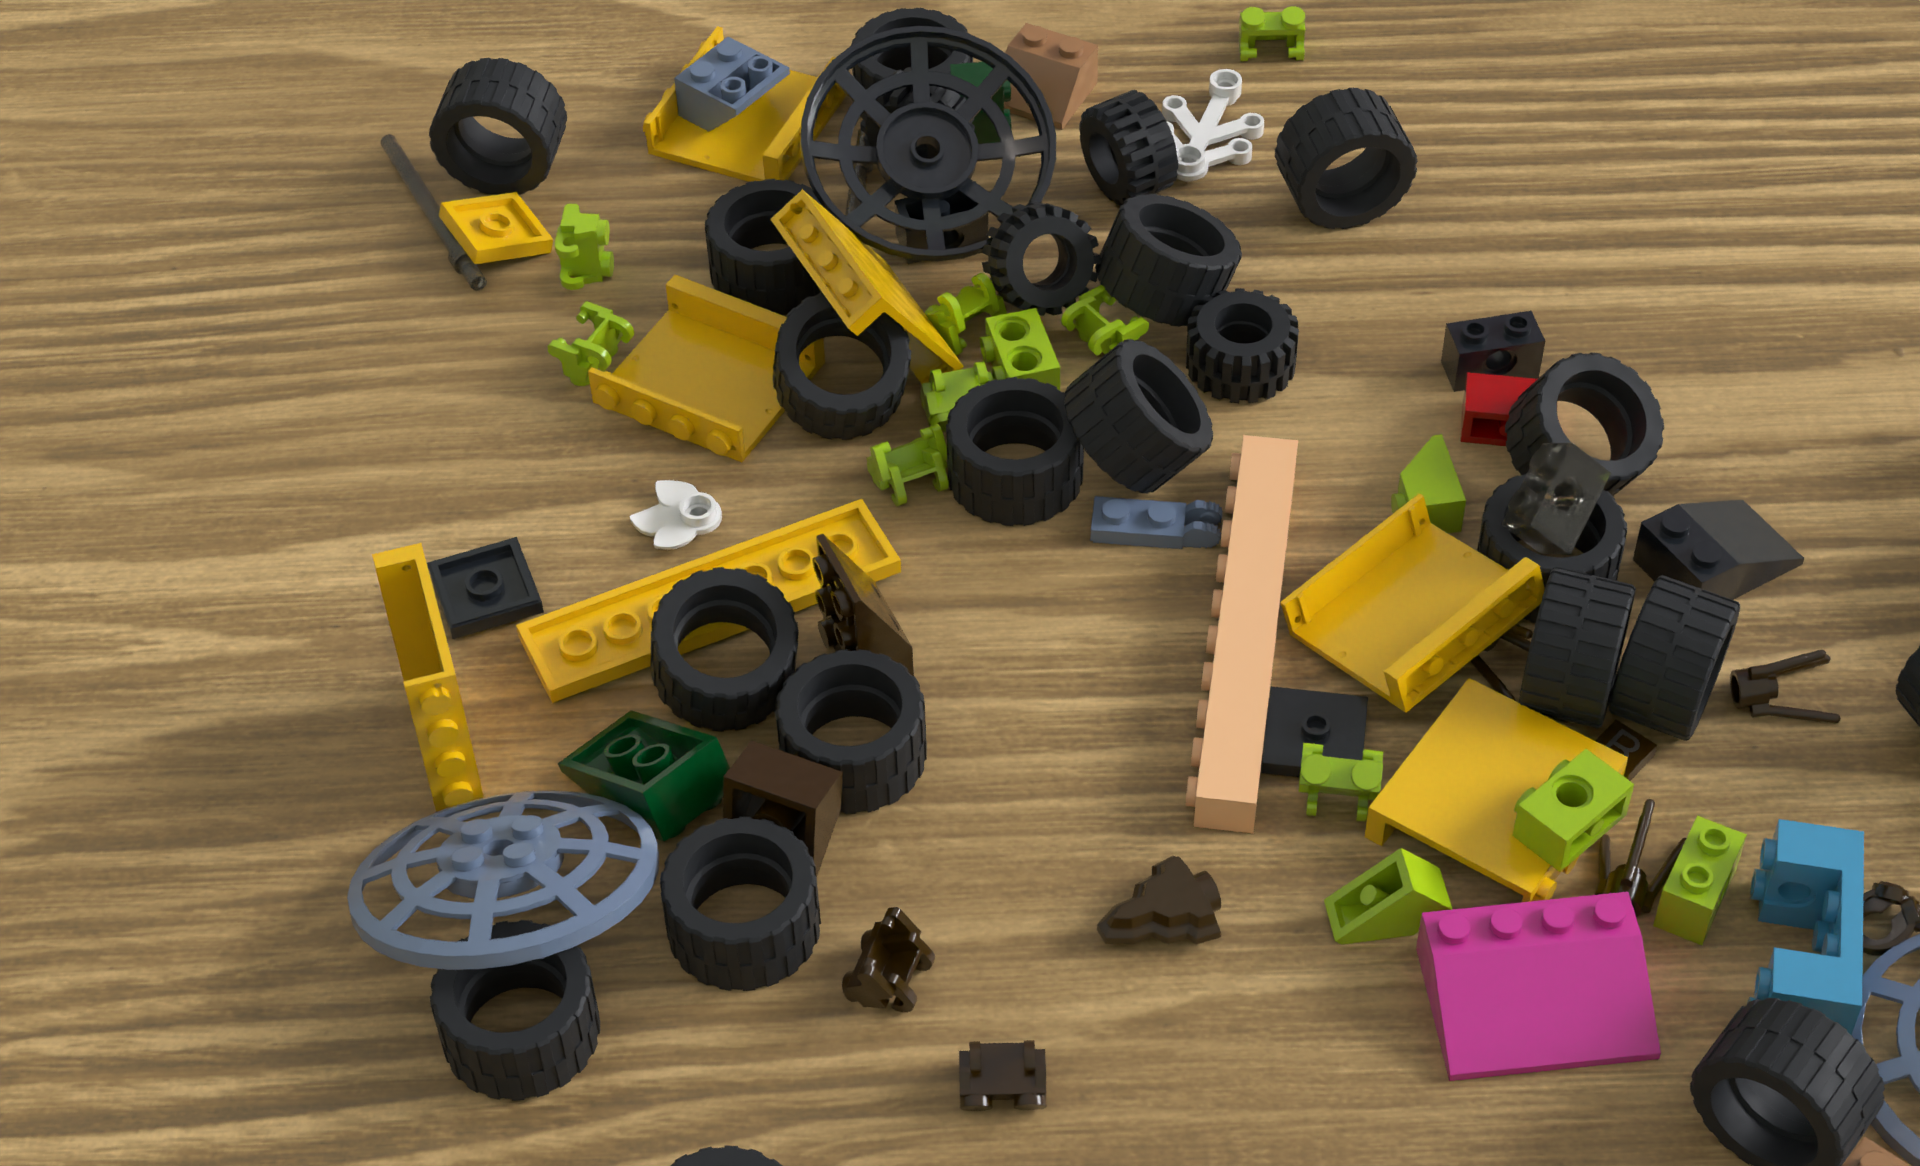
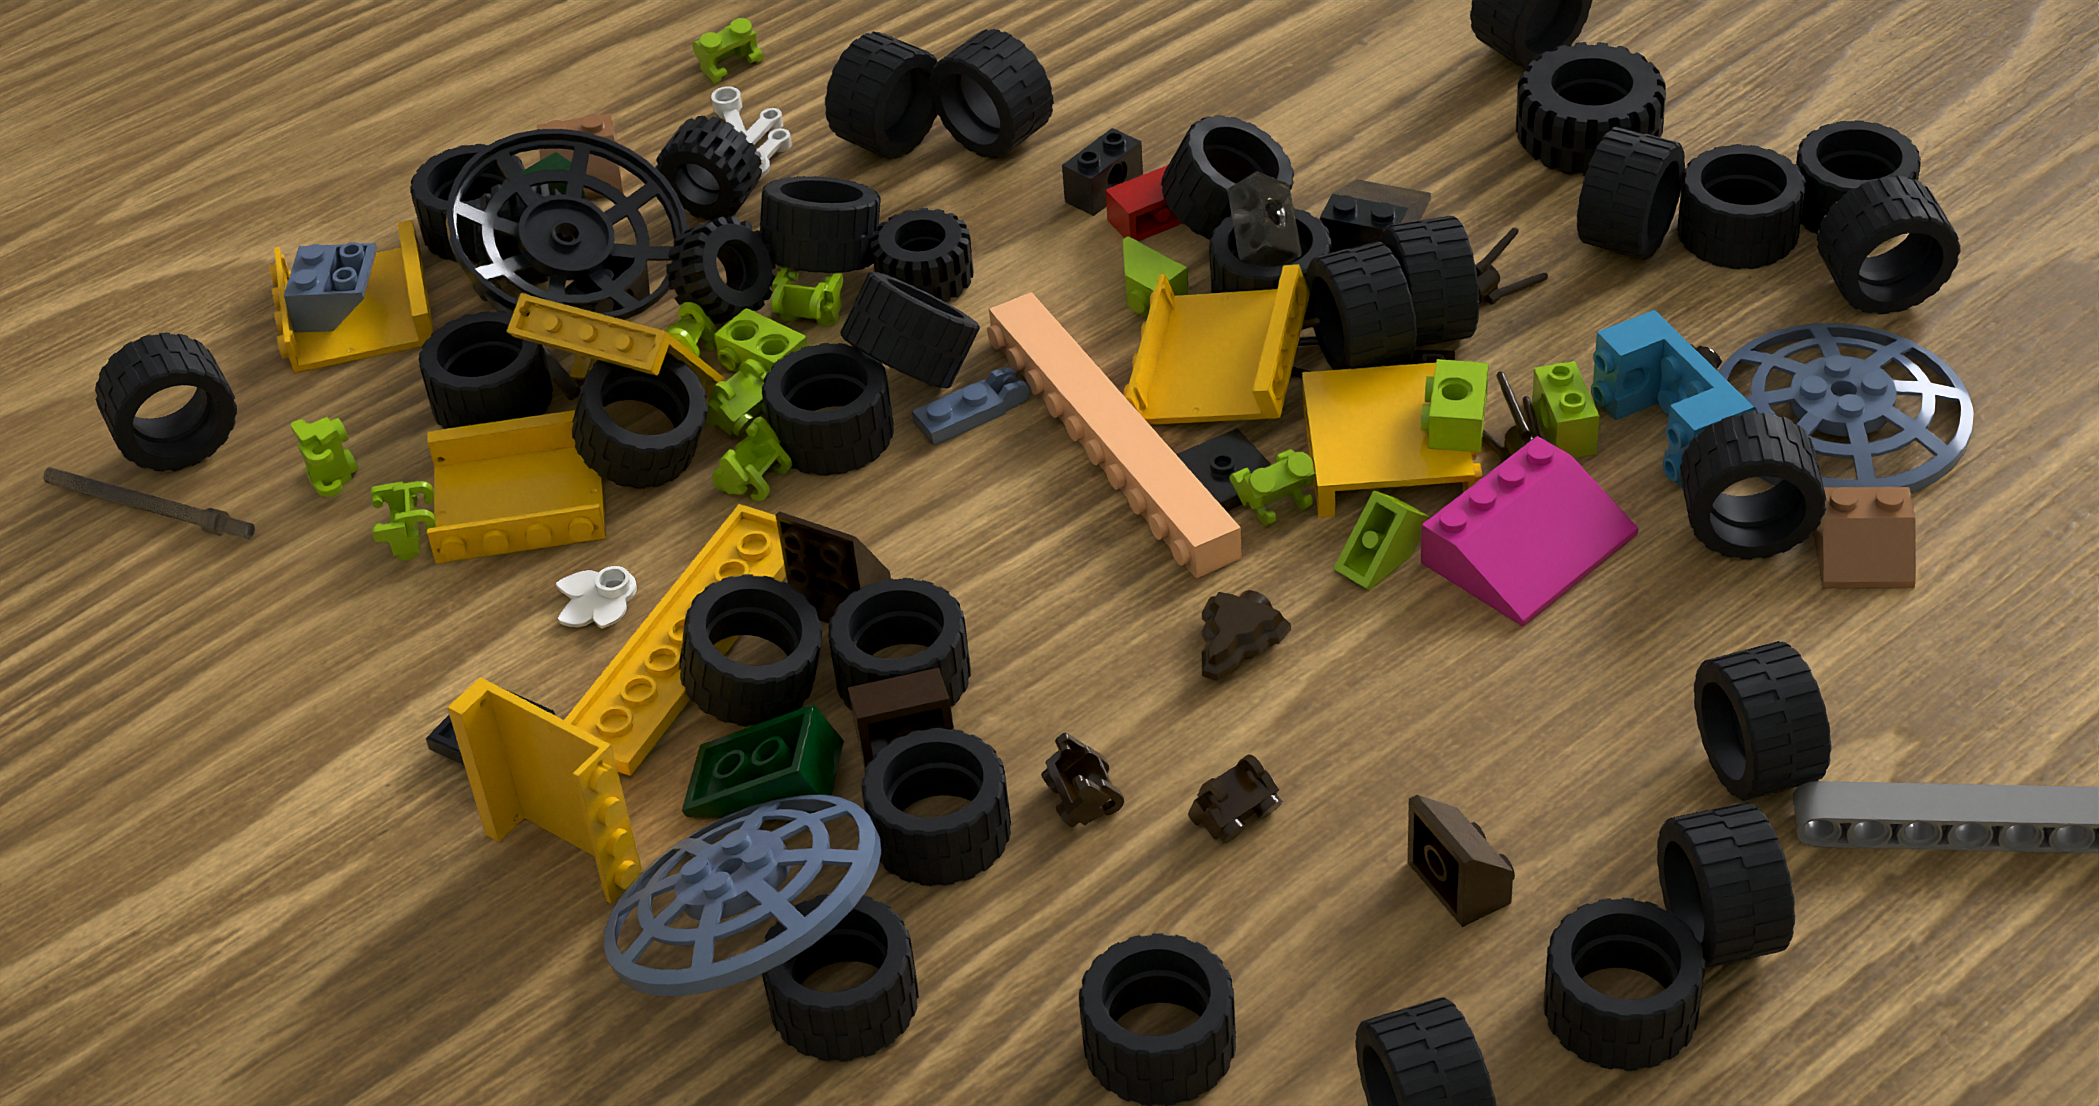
camera: 35 degrees left, 5 degrees down
(495, 228) = (223, 483): yellow tile -> none
(1445, 211) = (991, 93): none -> black tyre

